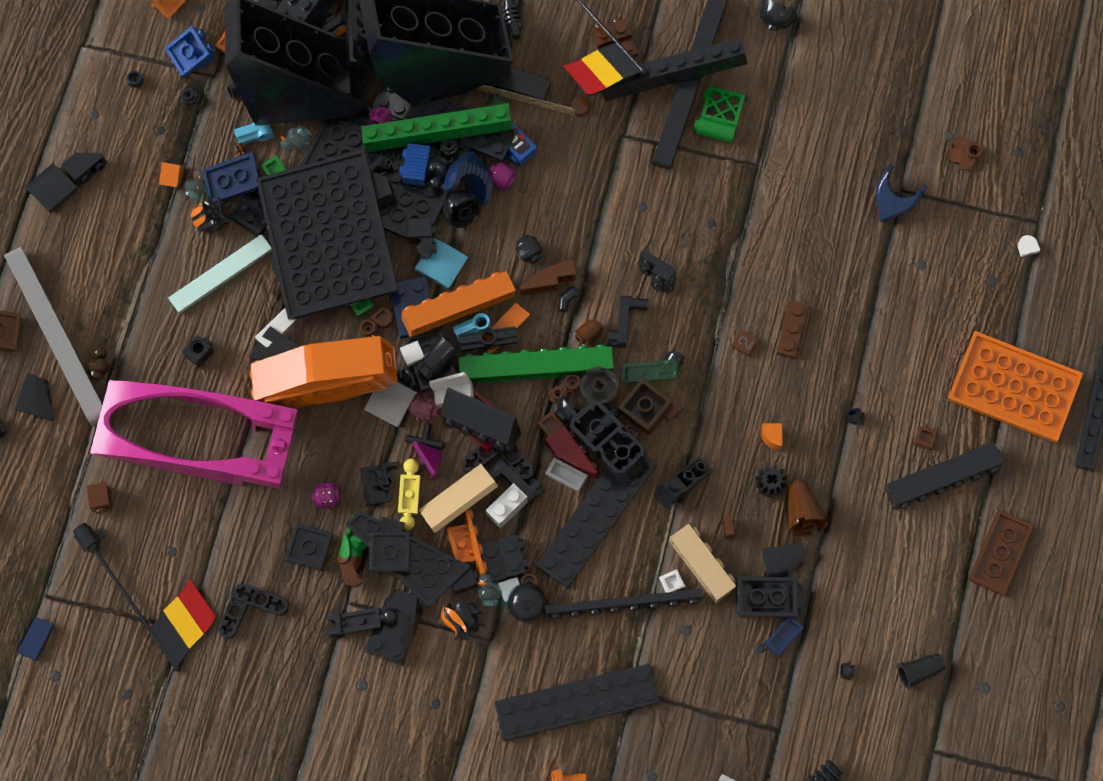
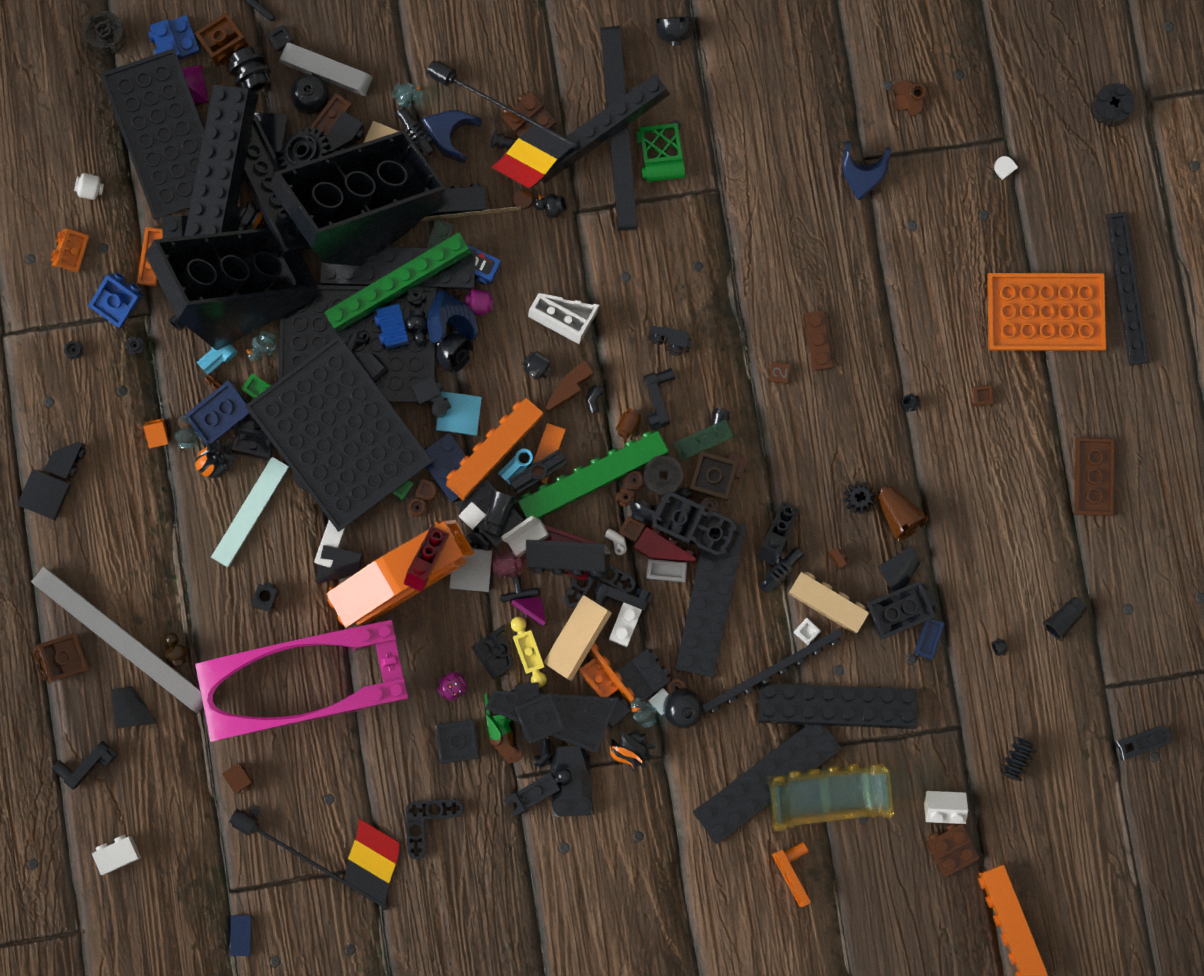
camera: 30 degrees left, 10 degrees up
(348, 360) = (426, 559): none -> dark red slope
(375, 596) = (545, 753): none -> black arm
(380, 115) = (337, 293): magenta gear -> none
(534, 430) = (618, 540): none -> white arm
(538, 18) = (443, 125): none -> dark blue animal
(571, 216) = (563, 315): none -> white wedge
(581, 49) = (501, 140): none -> black pin
(603, 119) = (553, 204): none -> black animal
(627, 737) = (830, 795): none -> windscreen
(671, 517) = (781, 570): none -> black hinge
(671, 661) = (837, 706): none -> black plate
(772, 435) = (842, 453): orange brick -> none
(943, 476) = (1014, 426): black brick -> none

